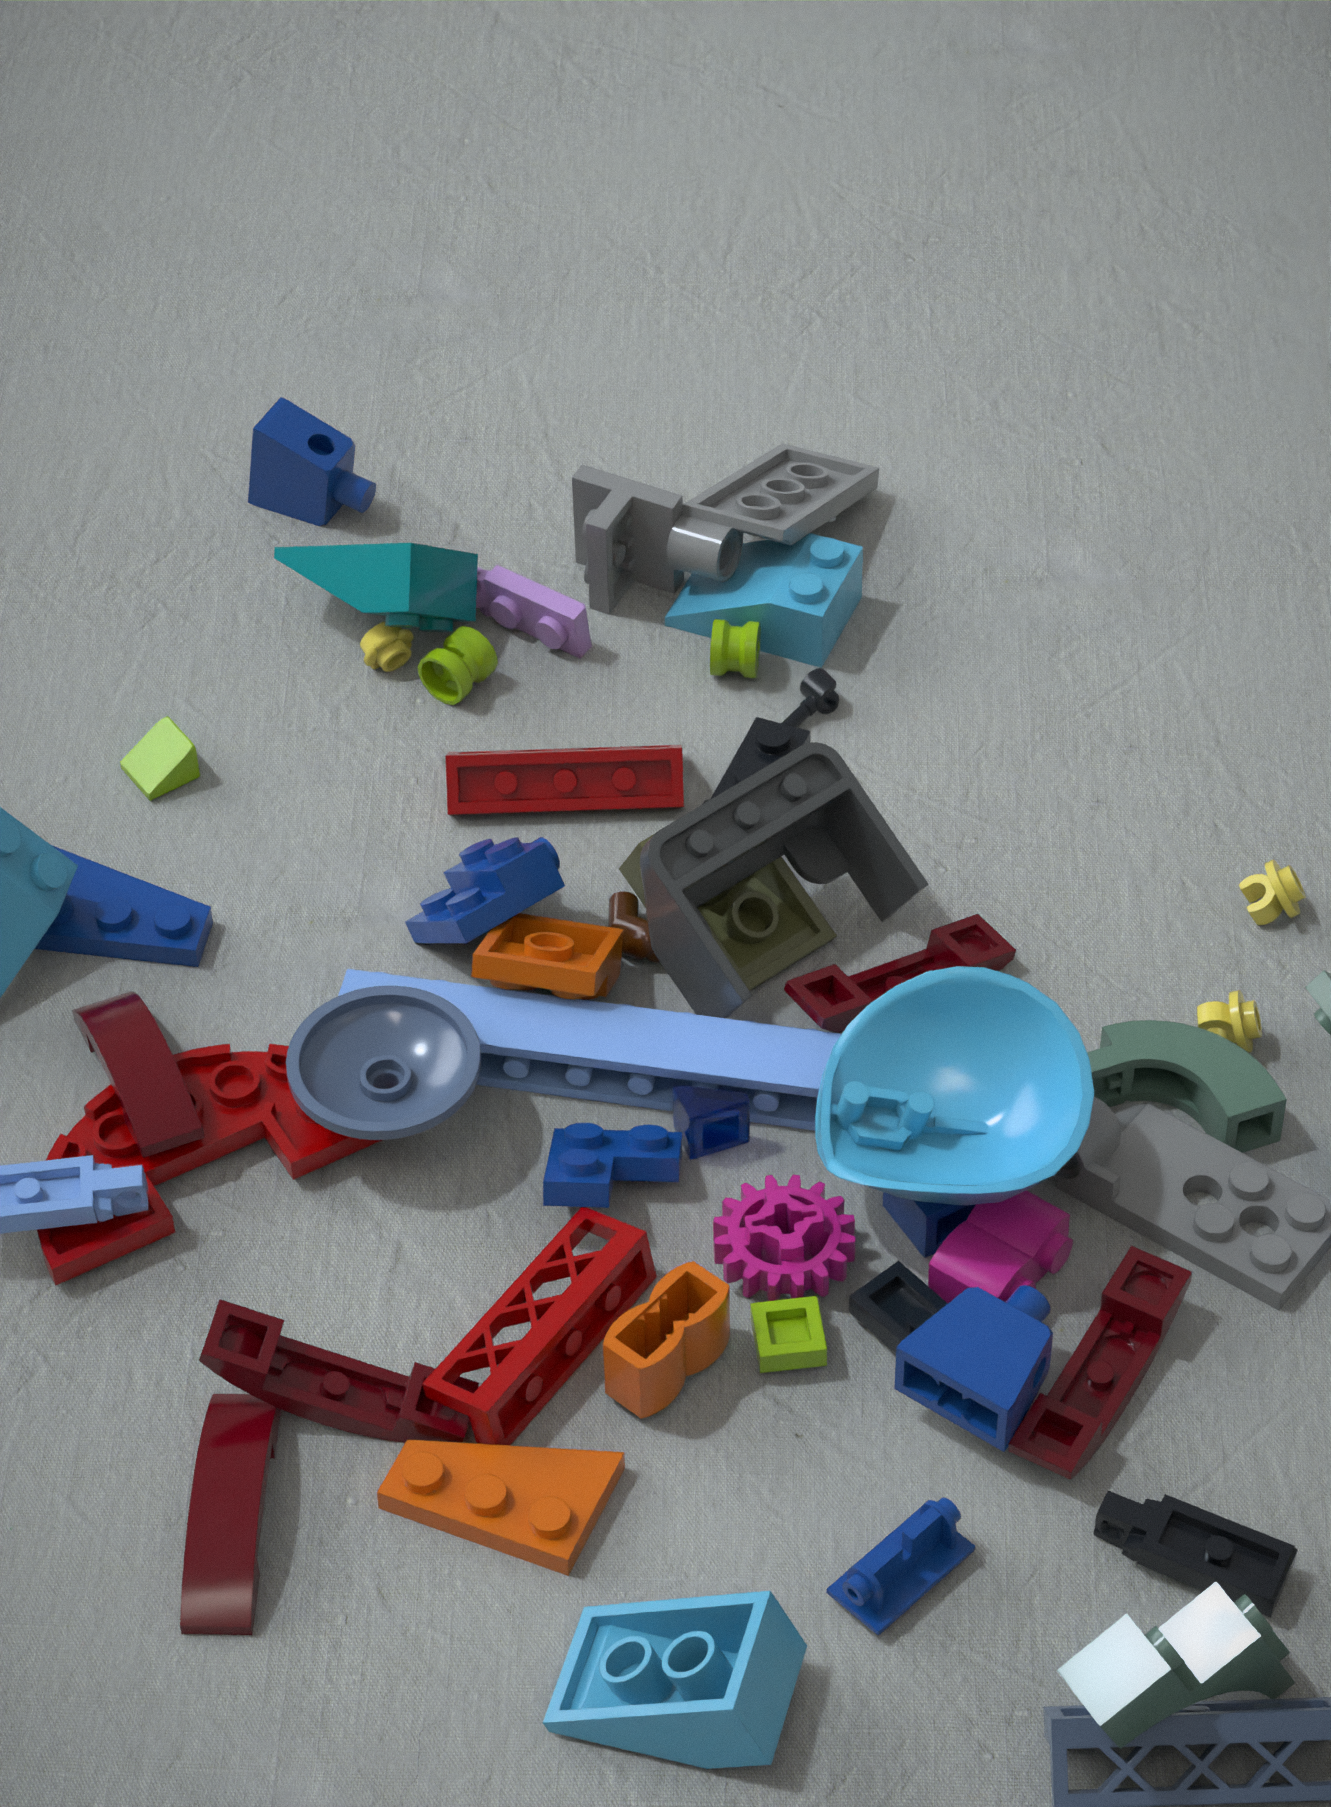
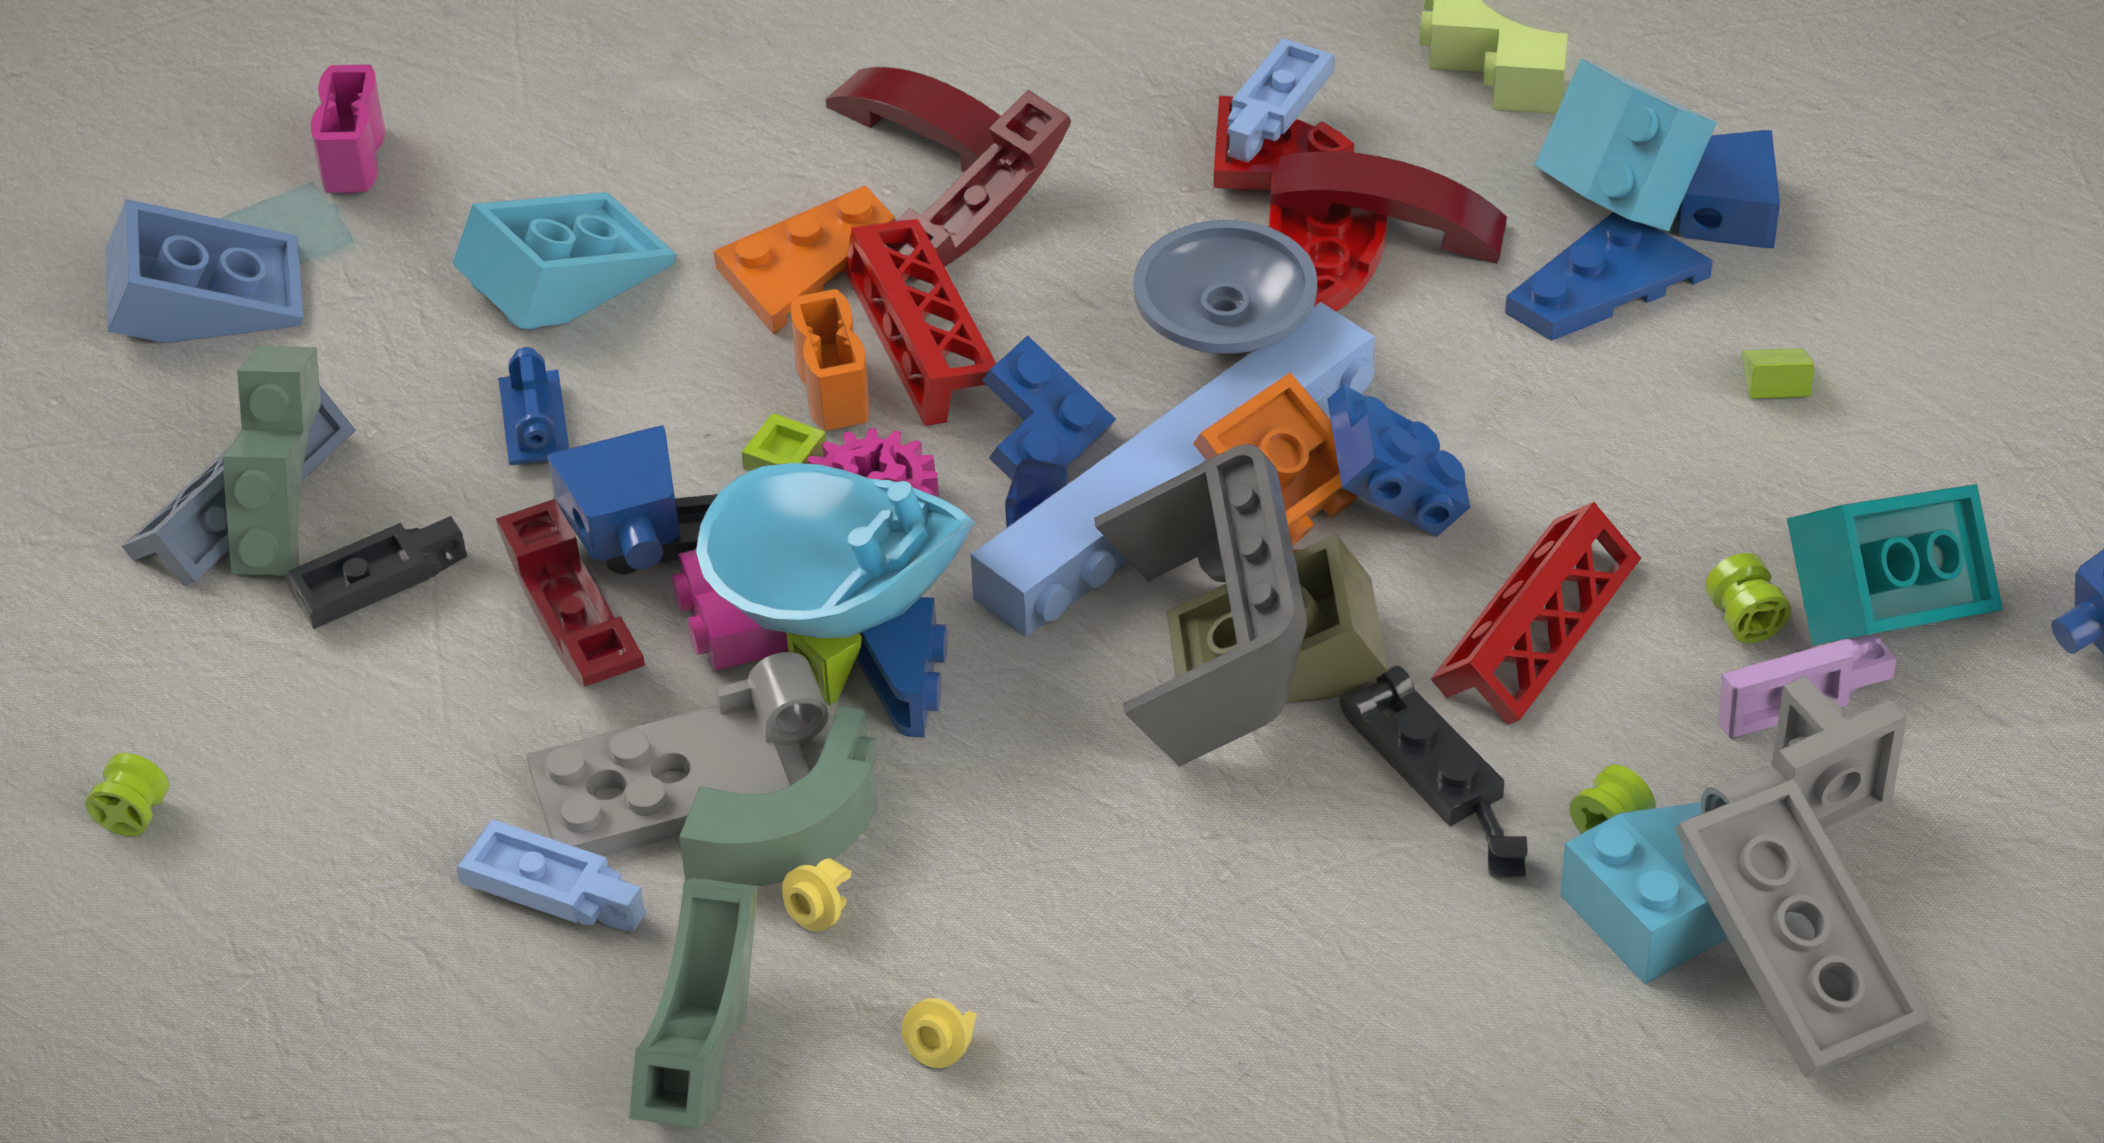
camera: 125 degrees right, 0 degrees up
(836, 999) = (1071, 687): dark red slope -> none

